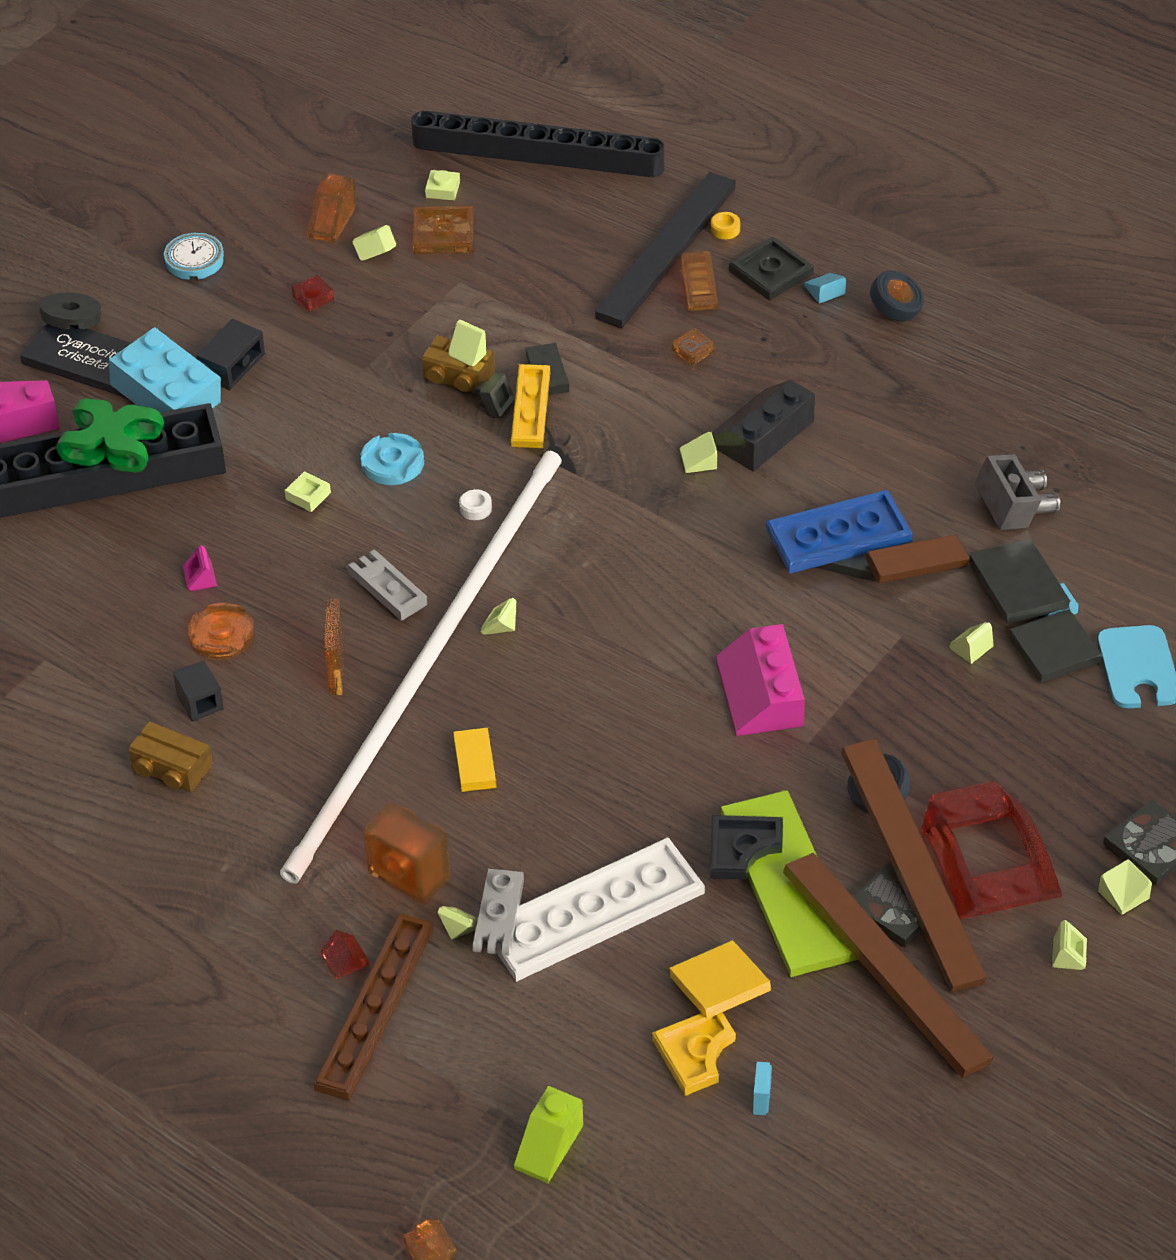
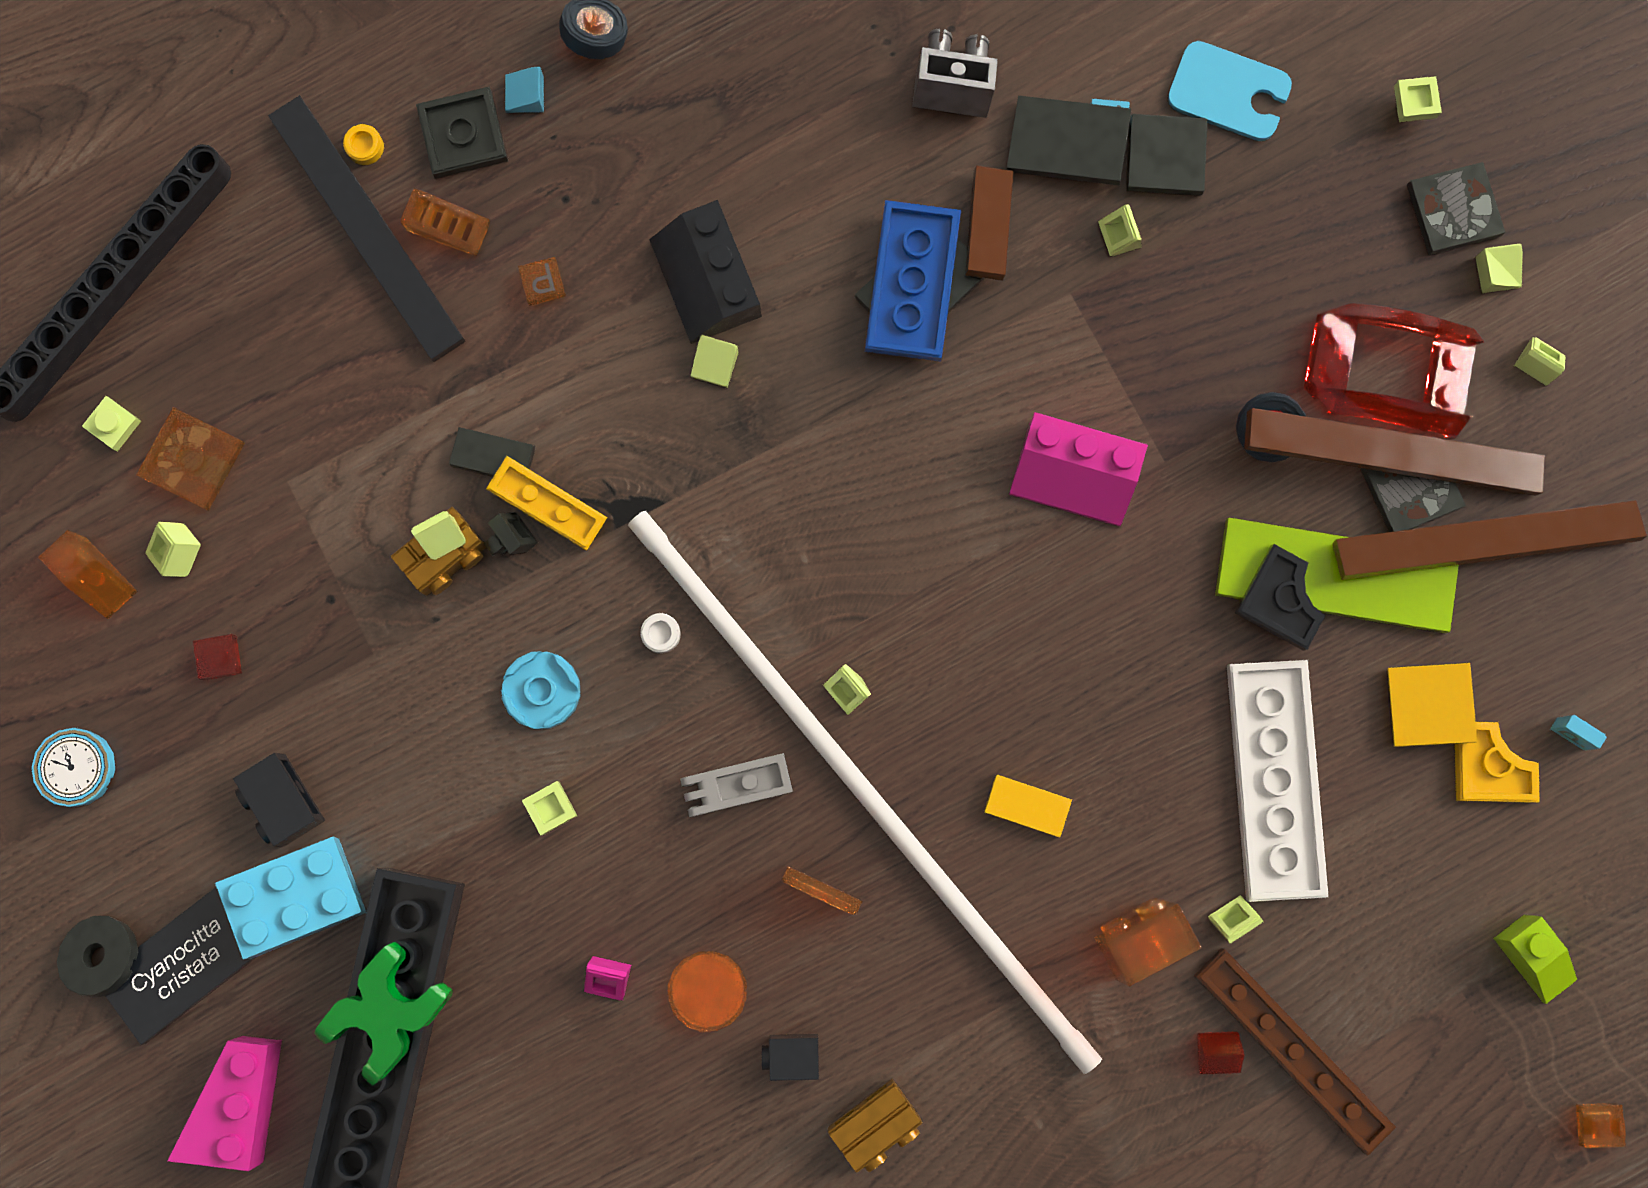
camera: 65 degrees left, 35 degrees up
(498, 910) = (1252, 879): light grey hinge -> none

